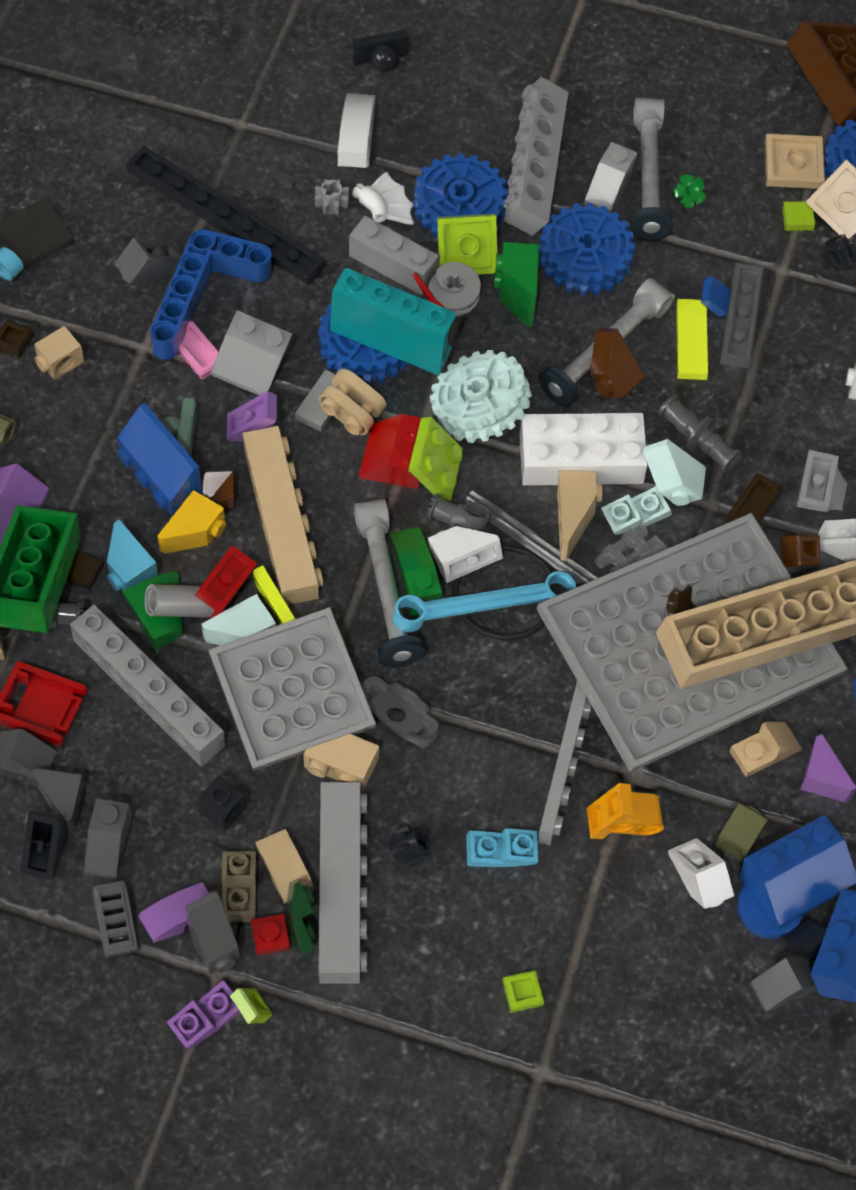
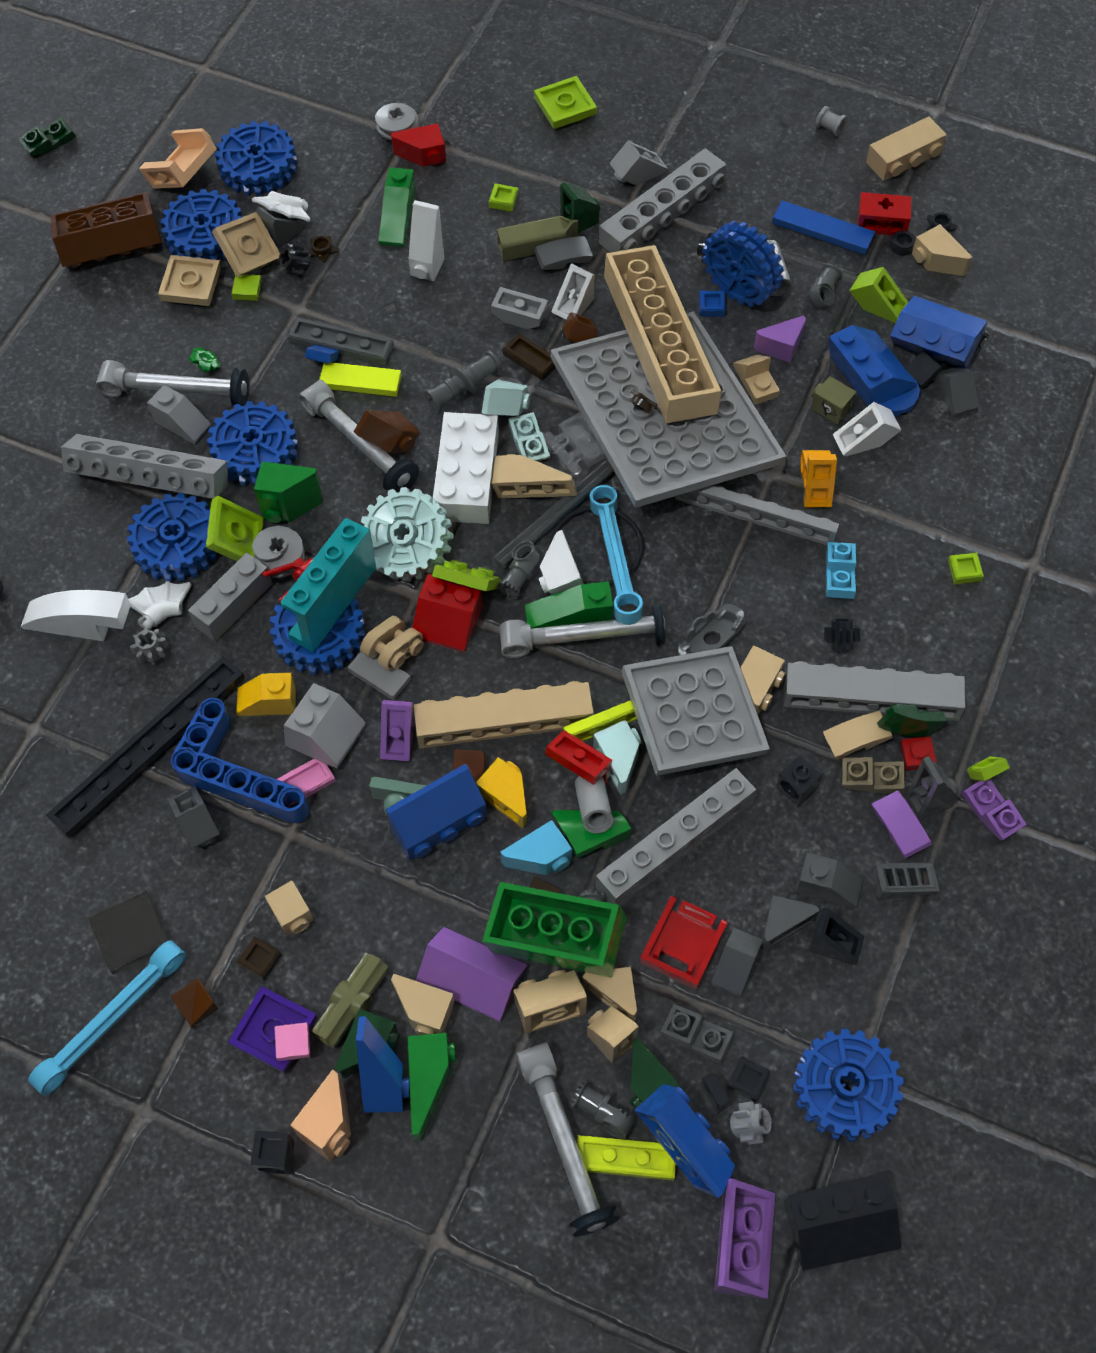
camera: 80 degrees left, 0 degrees up
(285, 306) = (267, 695): none -> yellow slope

